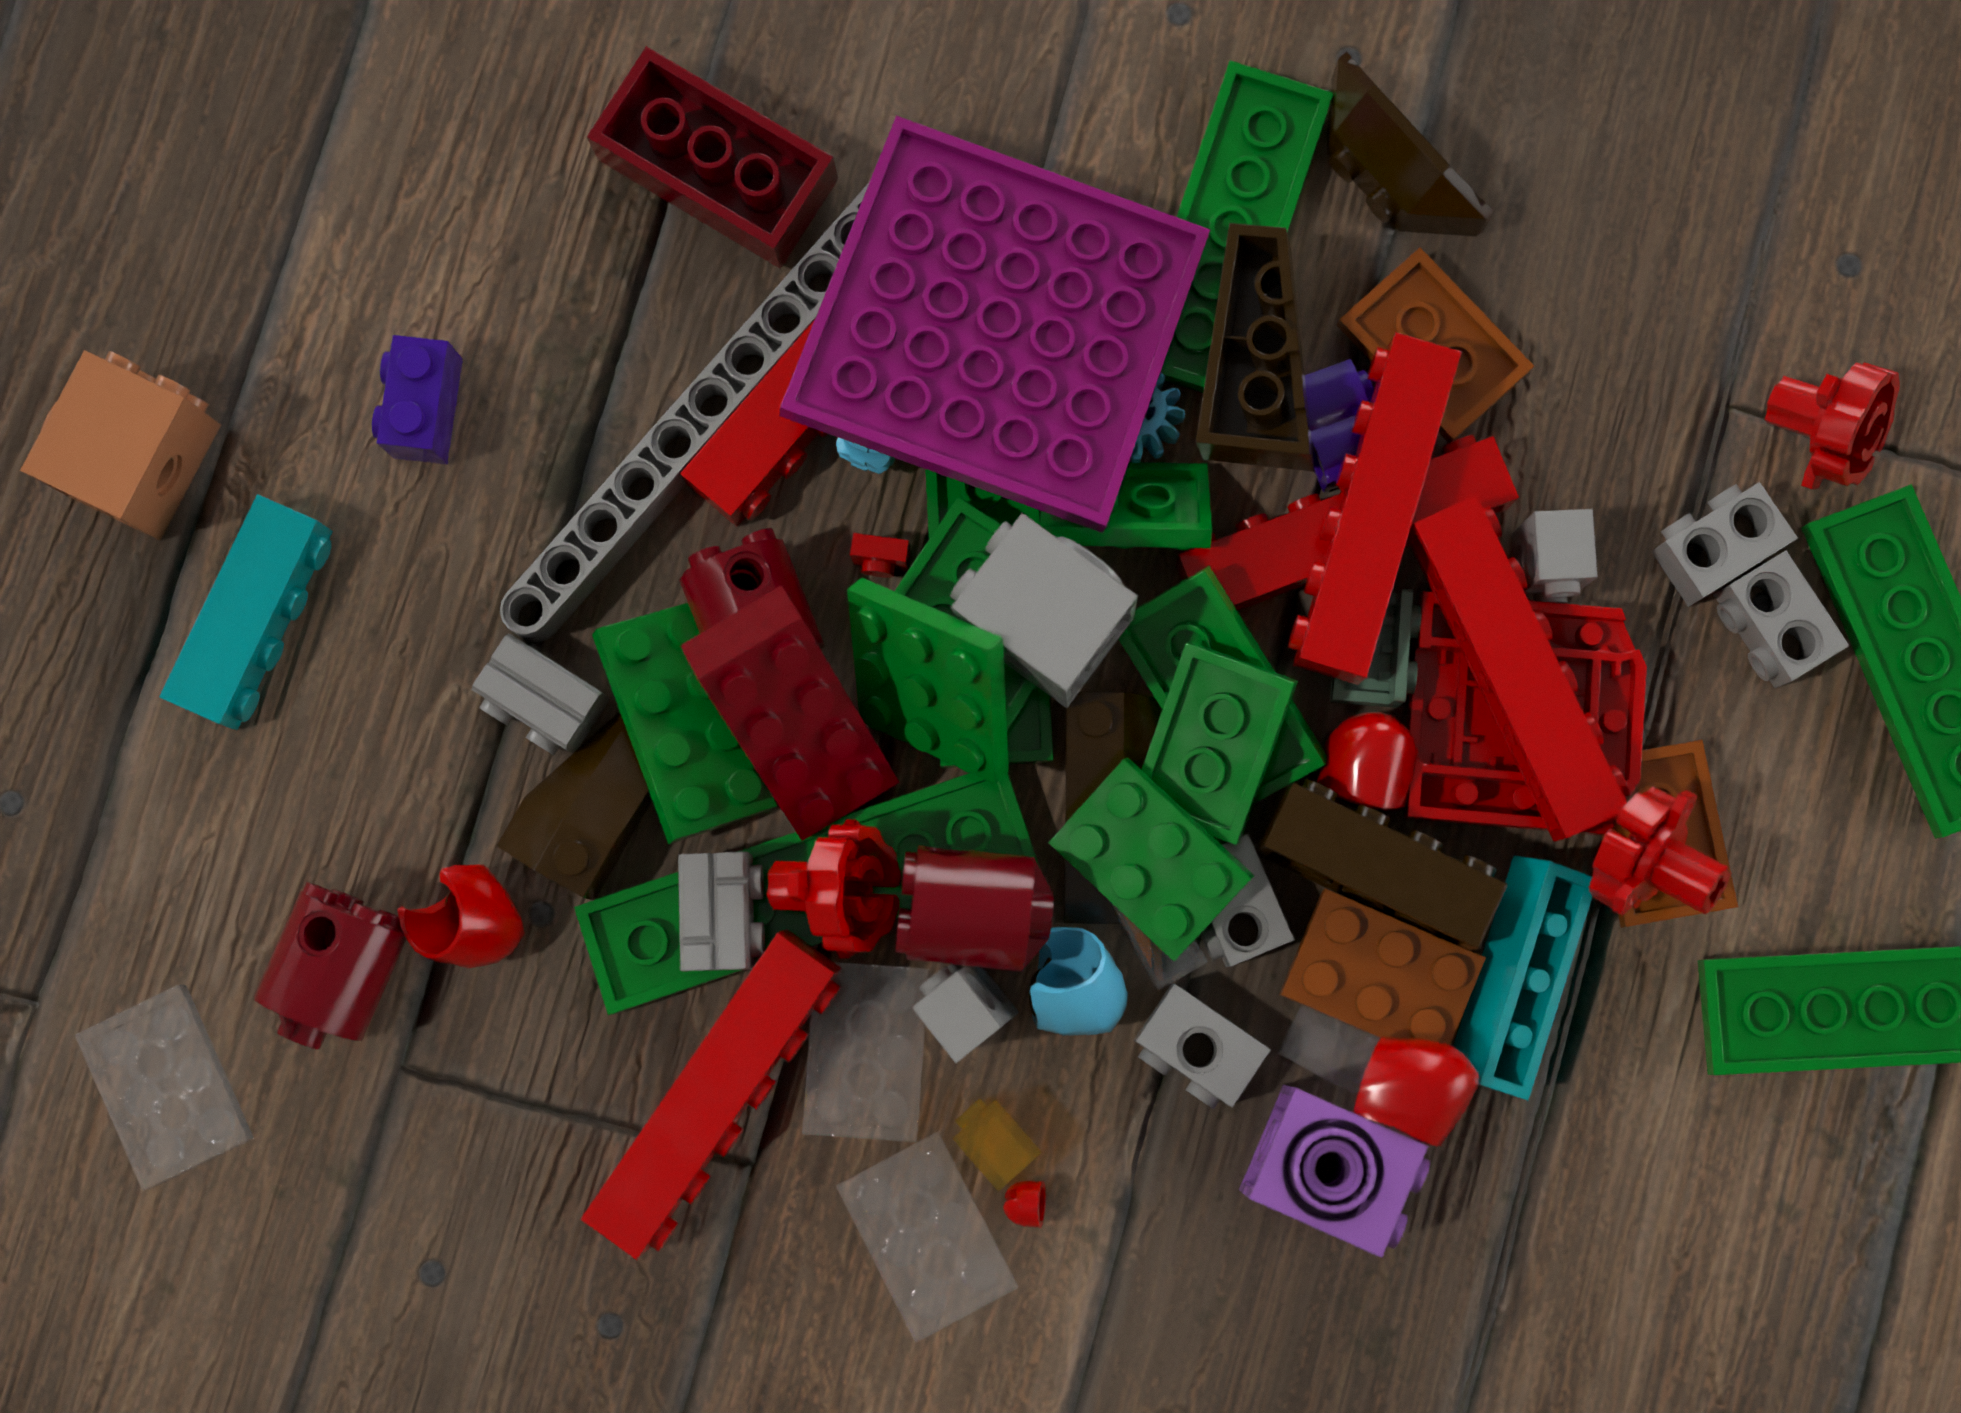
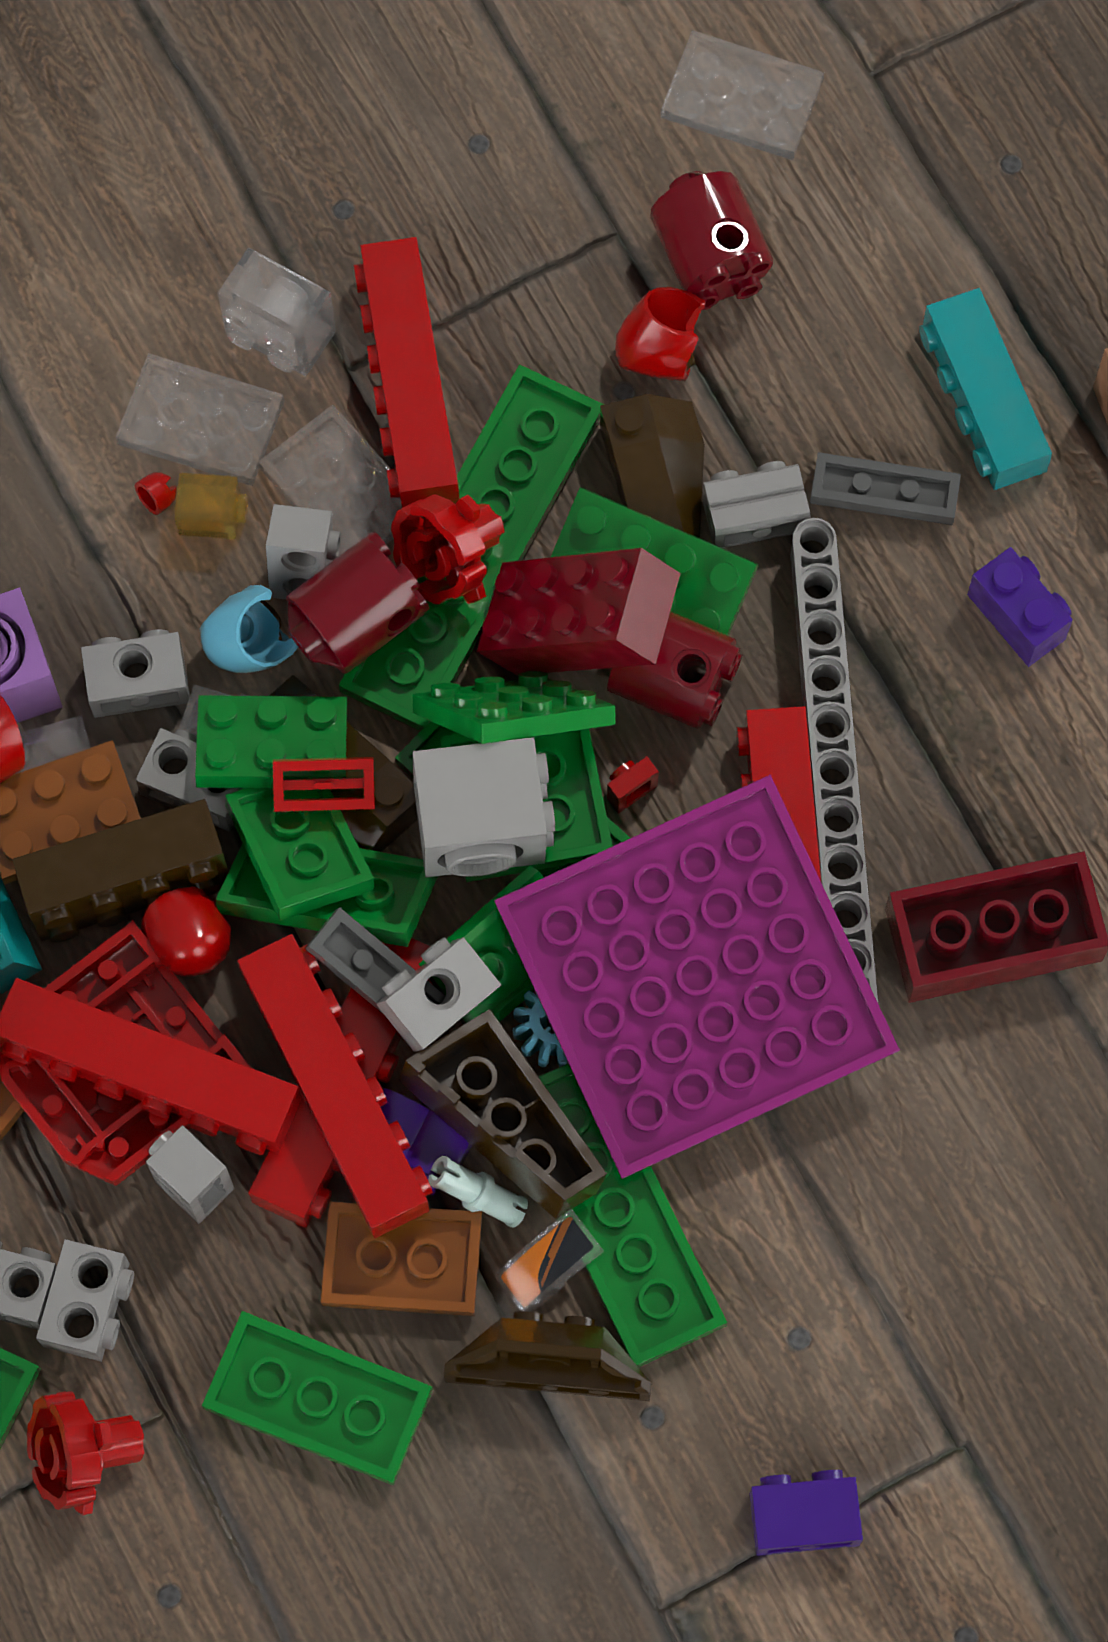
camera: 130 degrees right, 10 degrees down
(419, 609) = (885, 488): none -> dark grey plate
(719, 911) = (509, 473): light grey brick -> none
(772, 1265) = (276, 313): none -> clear brick
(1145, 775) = (315, 804): none -> red tile
(1250, 473) = (466, 985): none -> light grey brick
(1255, 561) = (360, 958): none -> dark grey plate
(1326, 232) = (548, 1262): none -> slope
(1331, 333) = (478, 1191): none -> light aqua pin
(1390, 670) = (234, 1006): sand green bracket -> none
(1602, 299) = (317, 1397): none -> green plate

